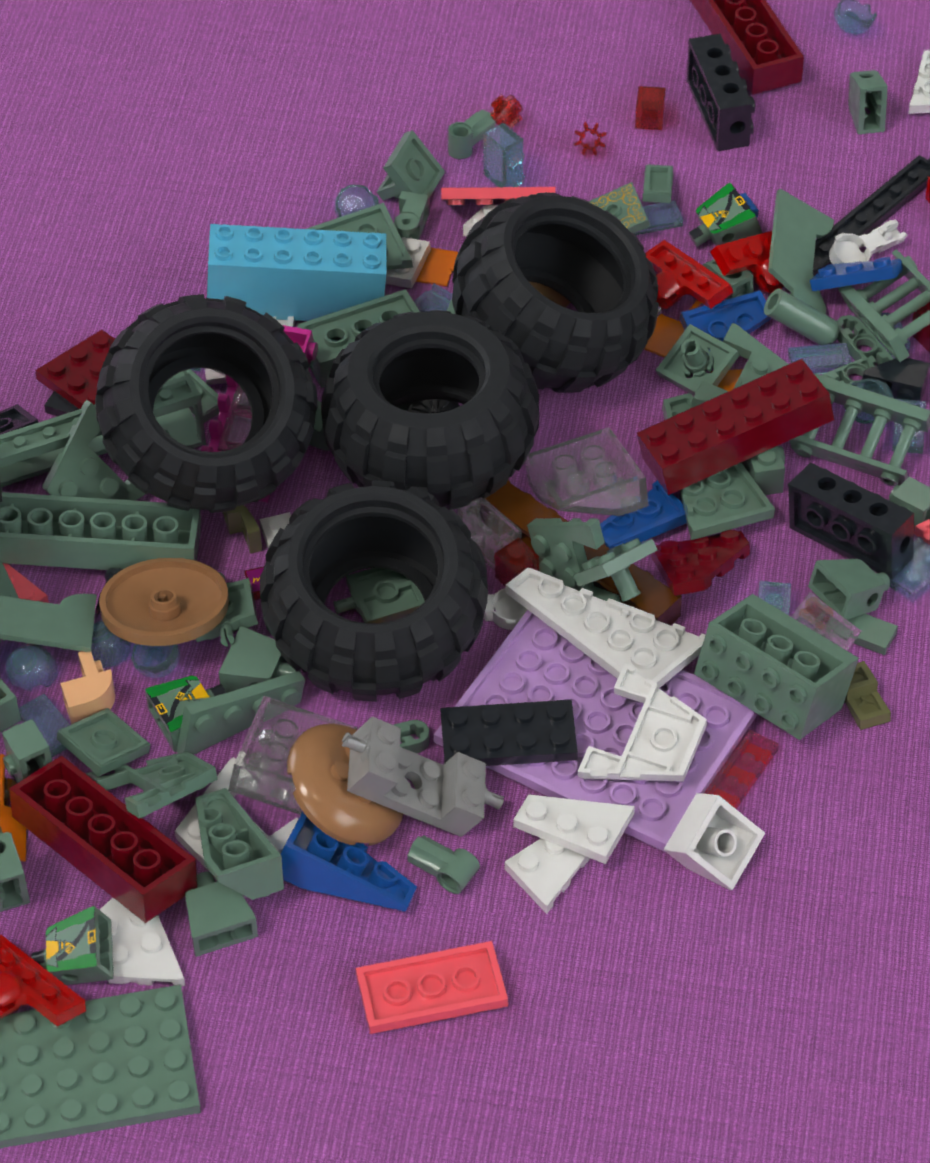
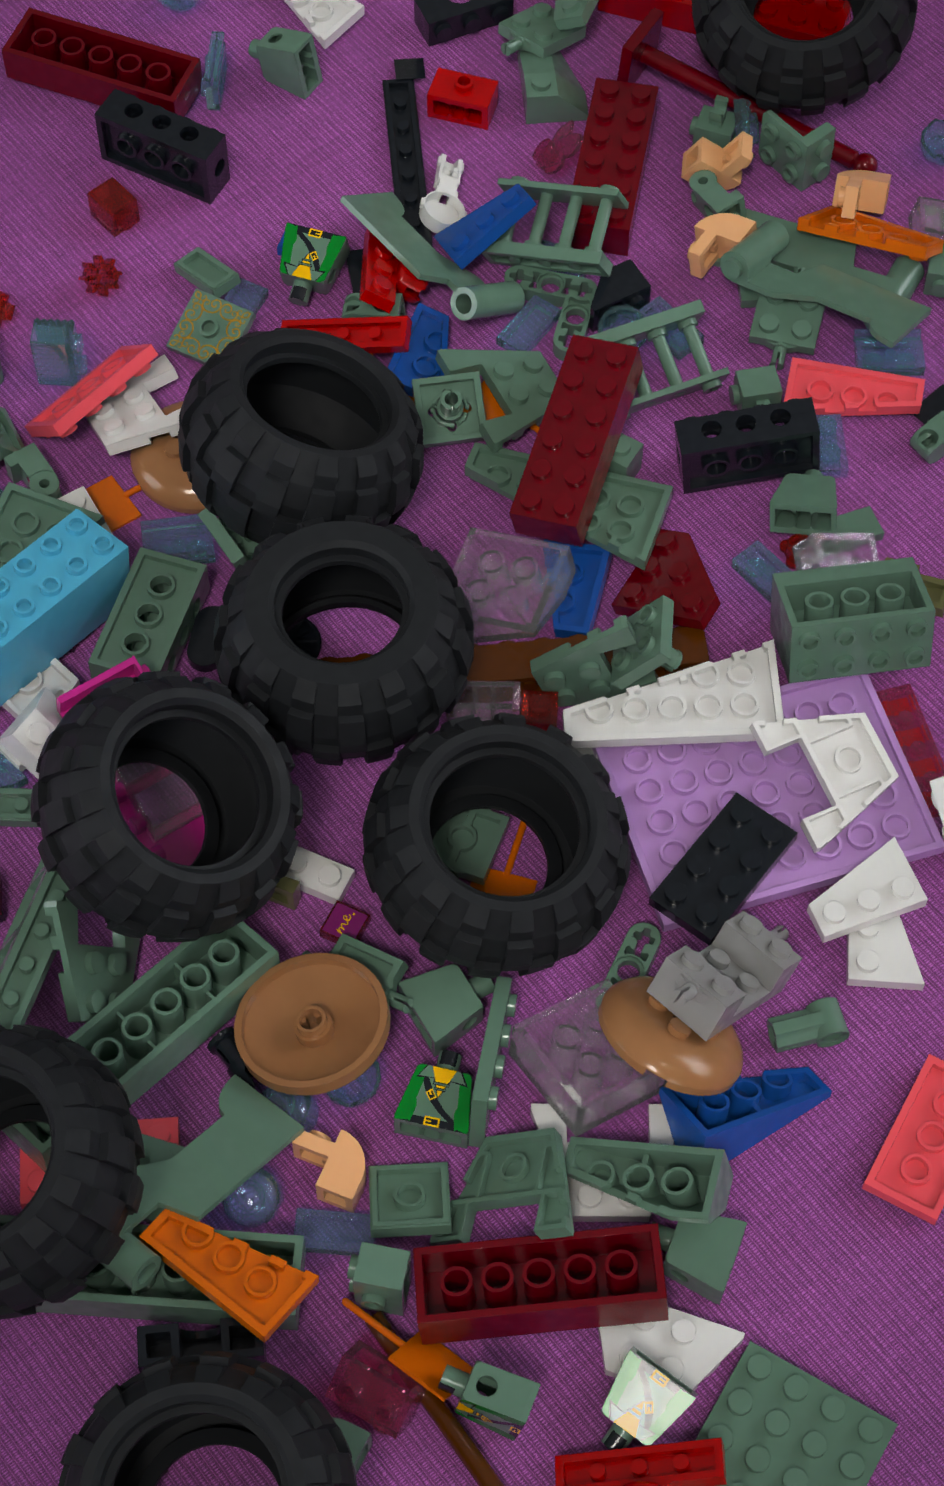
camera: 50 degrees left, 10 degrees up
(813, 75) = (215, 71): none -> clear light blue plate

